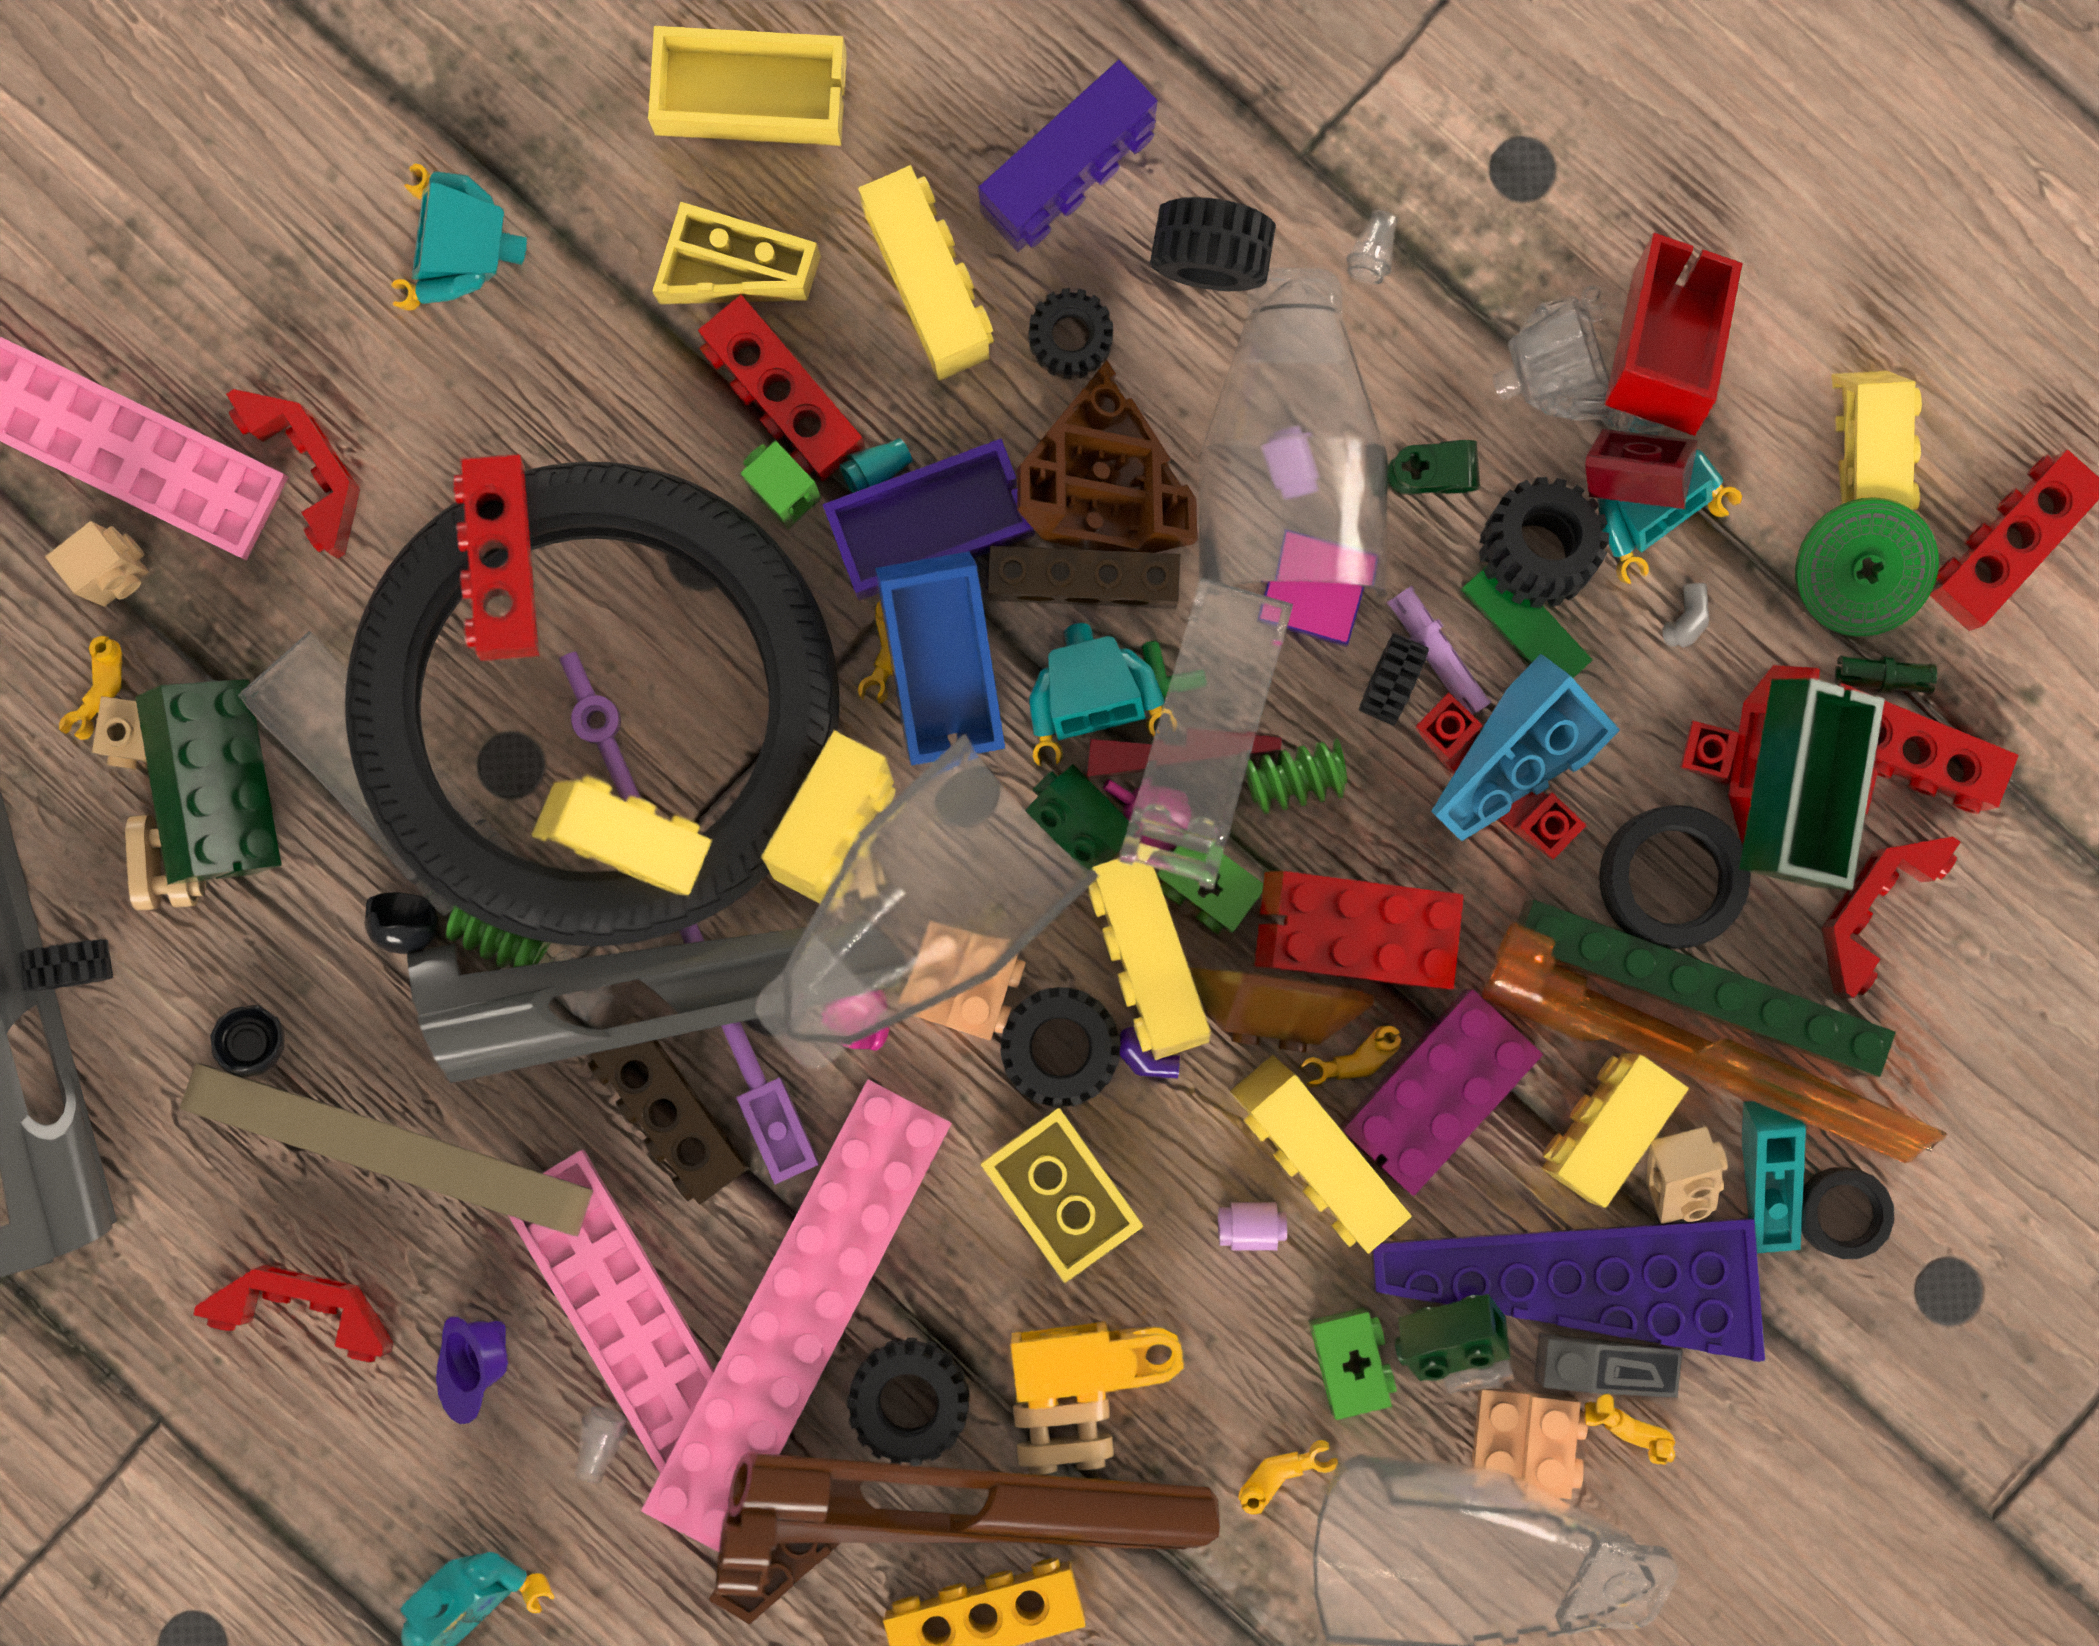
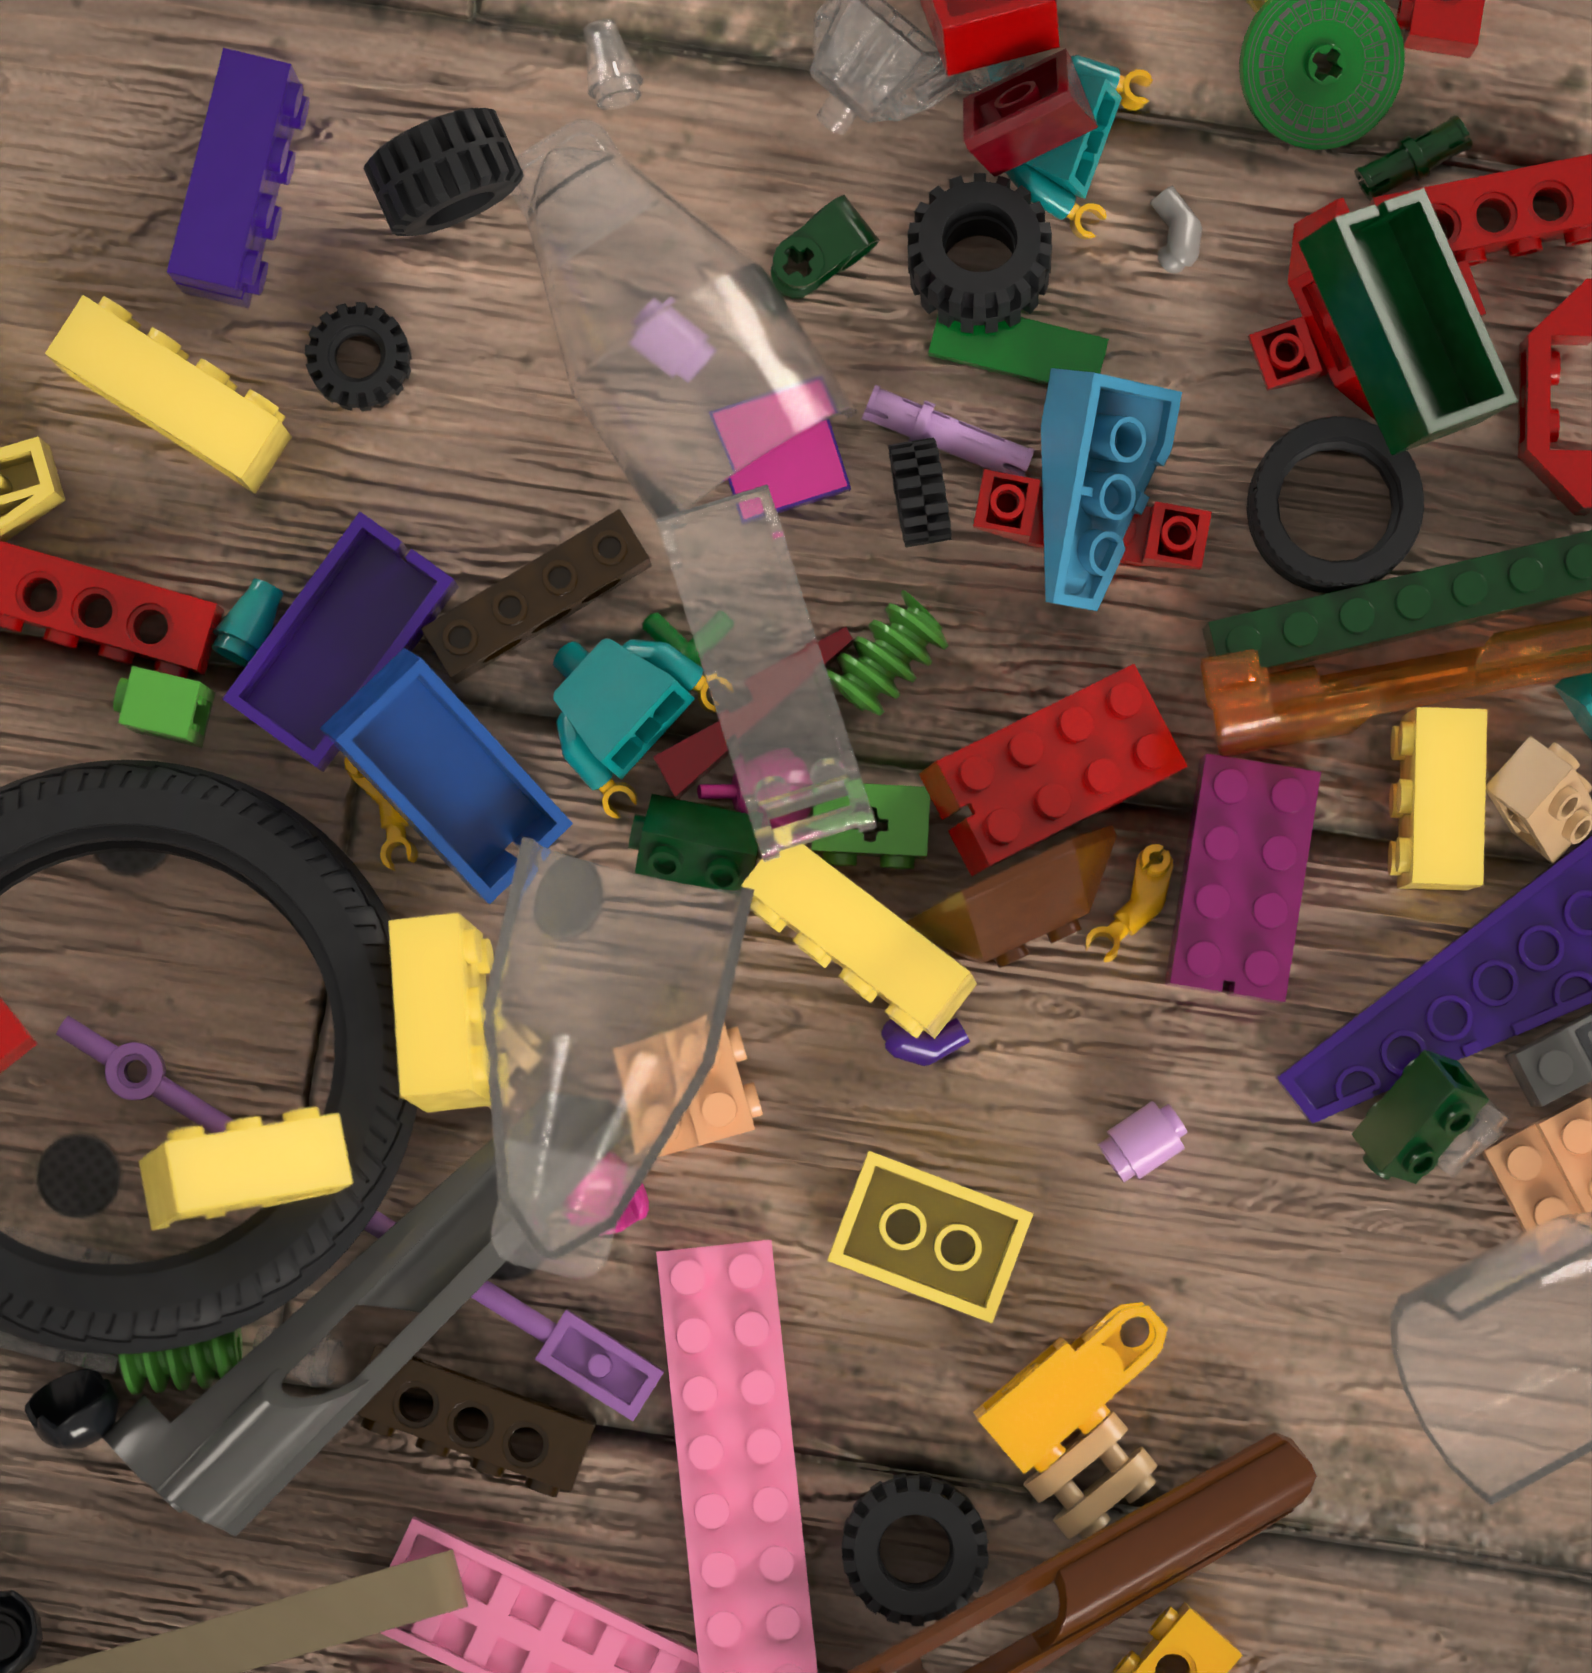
camera: 30 degrees left, 0 degrees up
(1064, 1089) = (881, 1094): black tyre -> none
(1105, 479) = (492, 482): reddish brown wedge -> none
(1274, 1470) = (1330, 1372): yellow arm -> none
(1321, 1154) = (1164, 1022): light yellow wedge -> none
(1333, 1340) = (1346, 1243): bright green brick -> none

